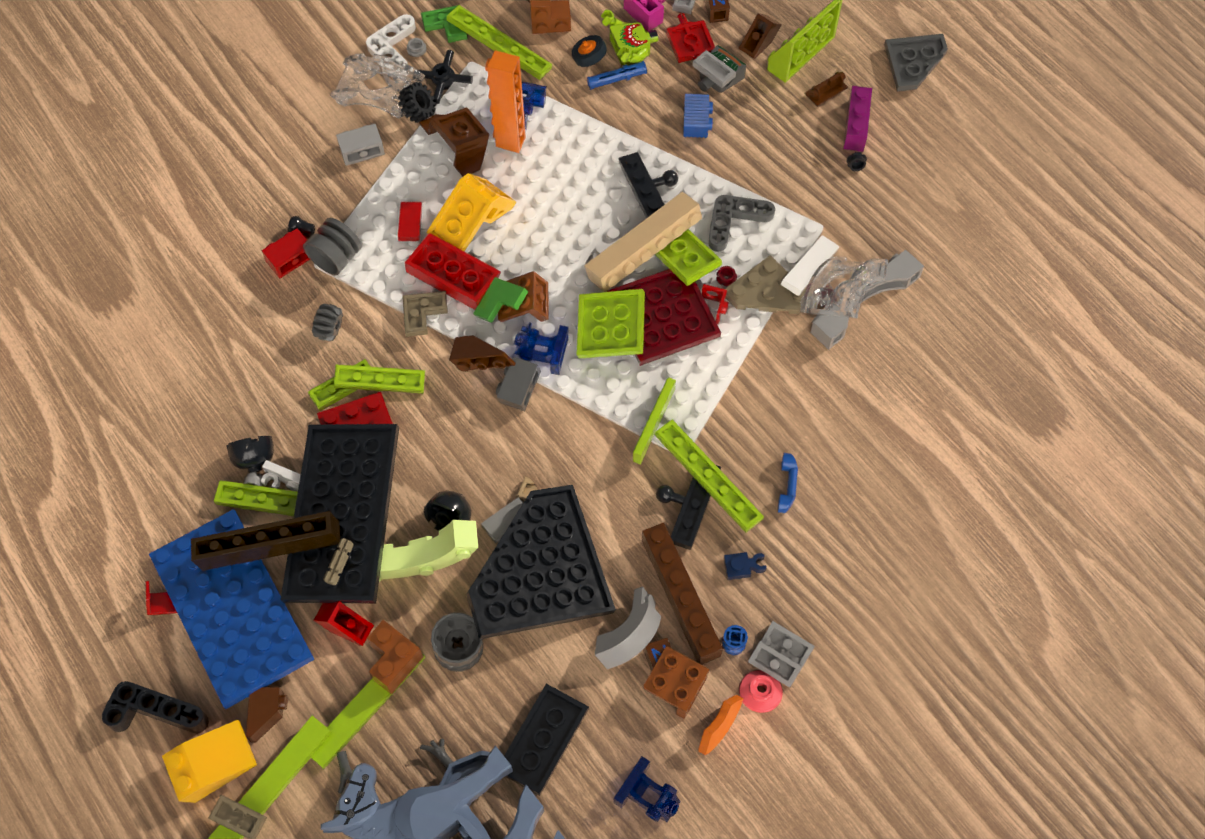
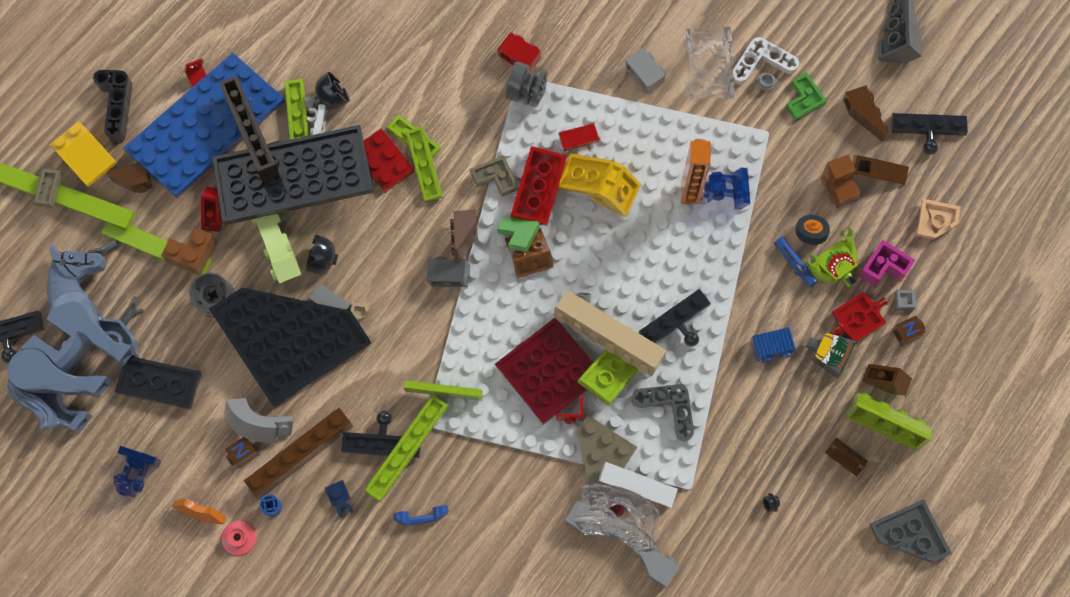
camera: 75 degrees right, 10 degrees up
(302, 225) = (548, 53): black piece -> none
(327, 322) = (460, 106): dark grey gear -> none
(338, 561) = (246, 186): dark tan axle -> none
(417, 102) = (706, 108): black tyre -> none
(444, 76) = (744, 110): black bar -> none
(463, 135) = (672, 150): reddish brown piece -> none
(498, 41) = (796, 149): lime tile -> none
(530, 337) = (486, 267): clear blue tile -> none
(610, 323) = (521, 329): lime plate -> none
(676, 680) = (222, 468): dark orange bracket -> none
(714, 69) = (823, 345): light grey tile -> none
(726, 271) = (609, 414): dark red plate -> none
(781, 654) = (270, 546): light grey slope -> none
(857, 118) = (818, 492): magenta brick -> none

